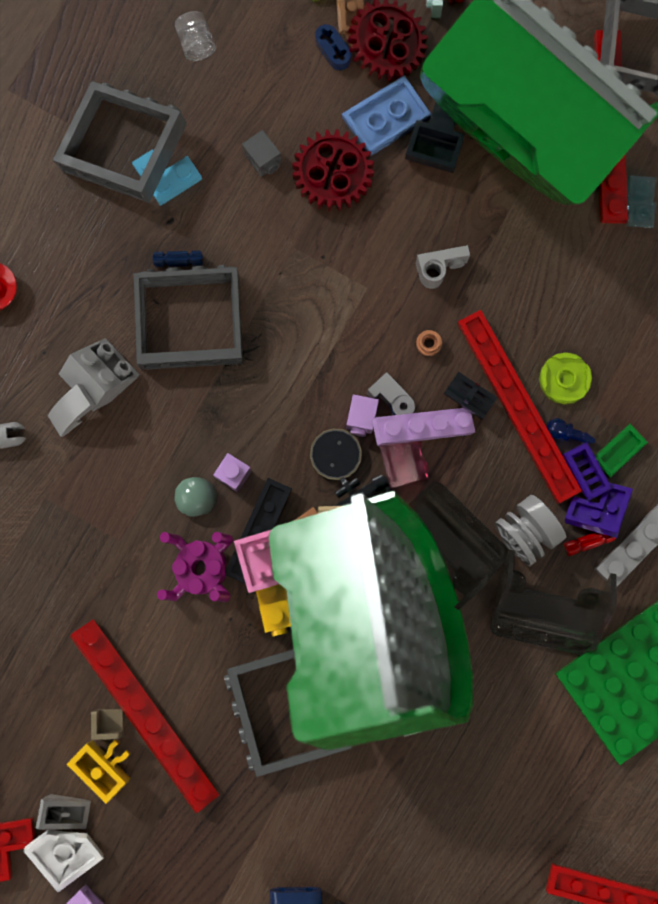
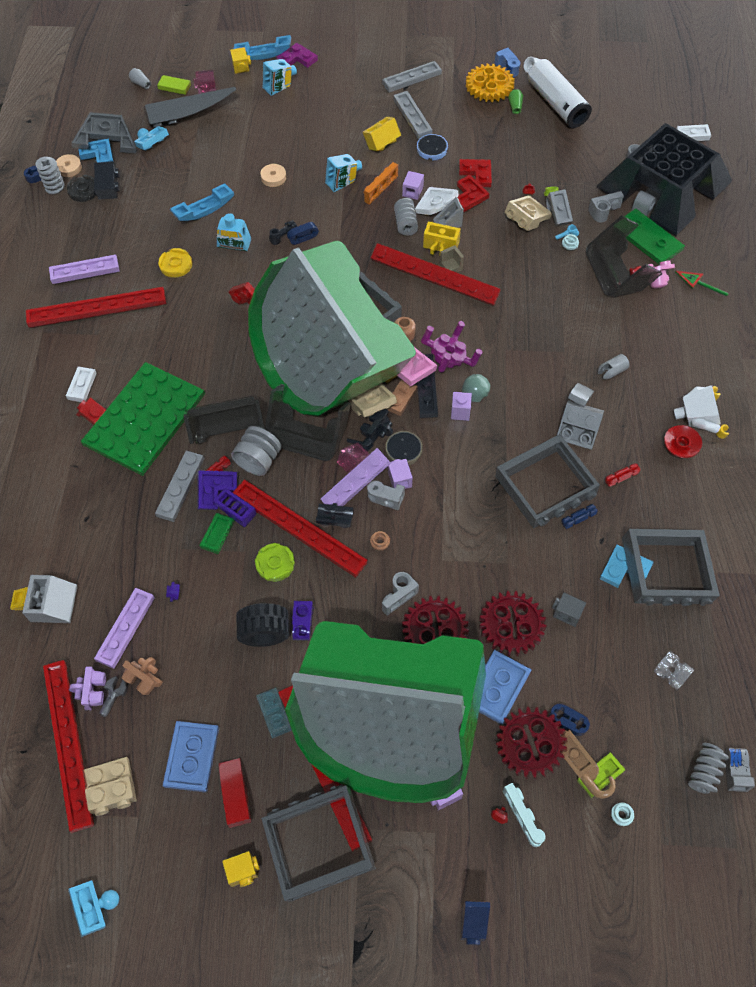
camera: 155 degrees right, 20 degrees down
(92, 285) = (622, 475): none -> red axle
(128, 848) = (405, 216): none -> light grey piece
(232, 635) = (408, 326): none -> nougat head
(436, 799) = (242, 293): none -> red plate
(443, 212) = (416, 630): none -> dark red gear
(560, 429) = (265, 526): clear blue bar -> none
(565, 287) = (302, 620): none -> dark purple leg
(620, 289) = (262, 625): none -> black tyre

